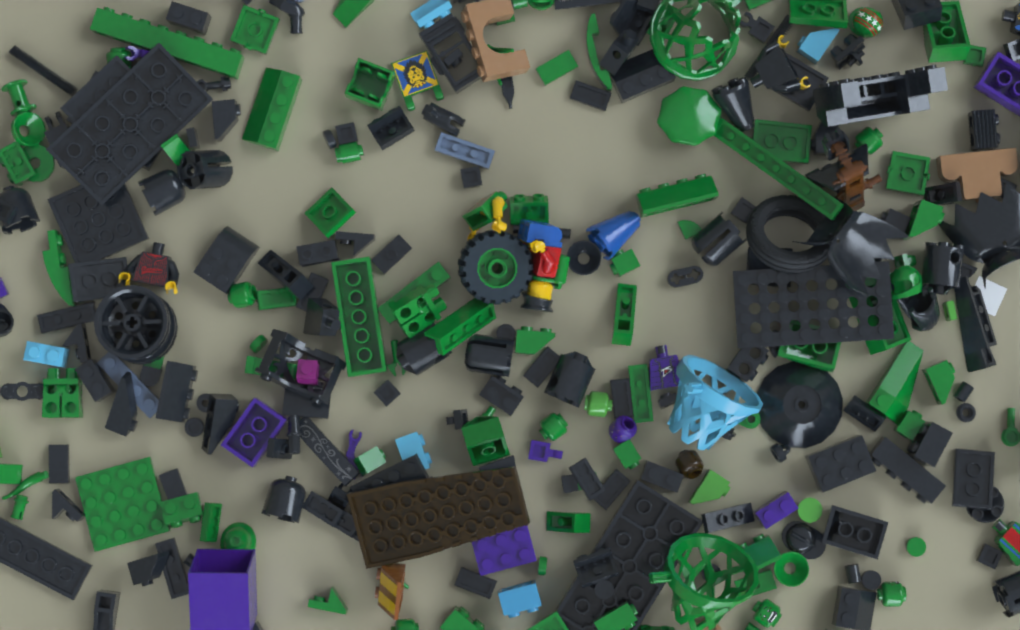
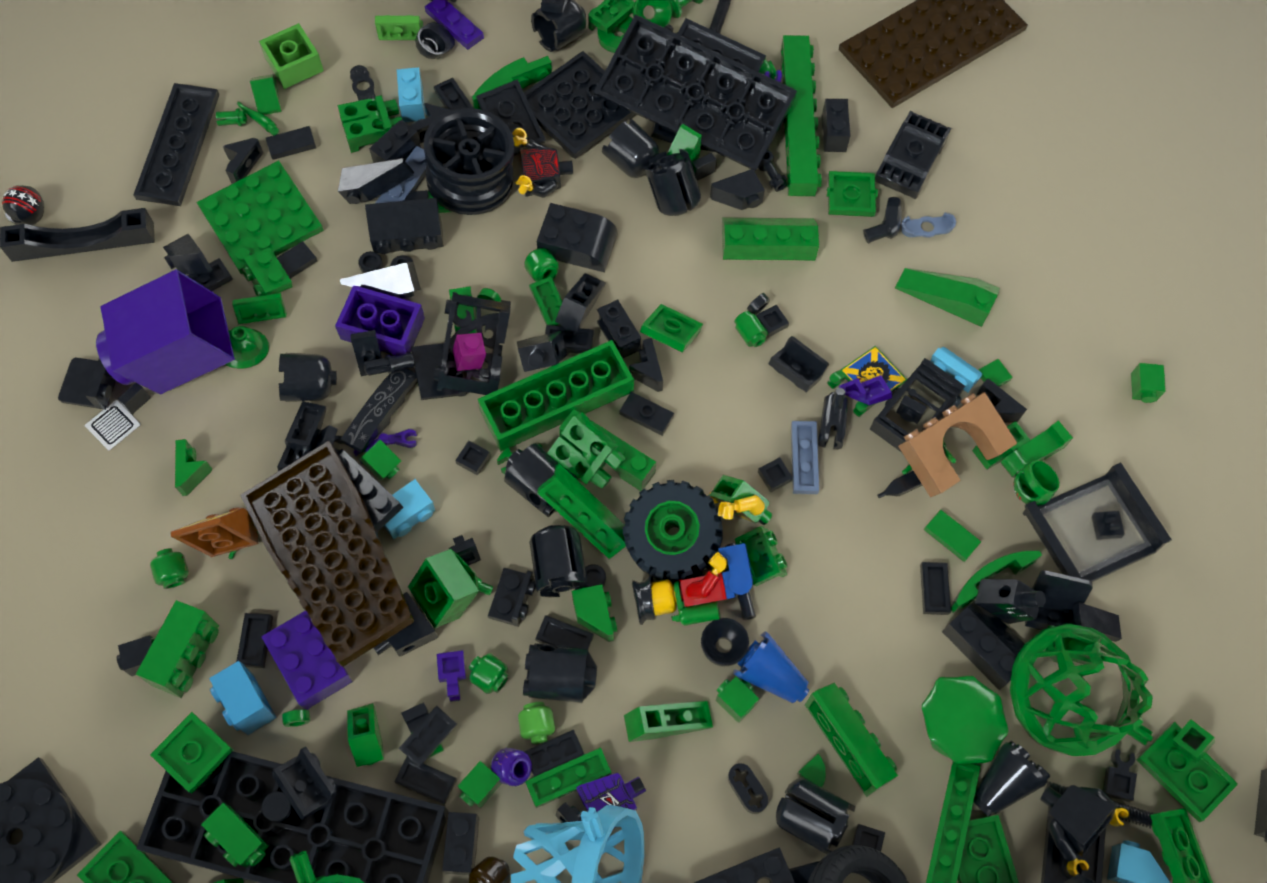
camera: 70 degrees right, 20 degrees down
(370, 84) = (840, 325): green piece -> none
(429, 85) = (868, 392): none -> dark purple slope

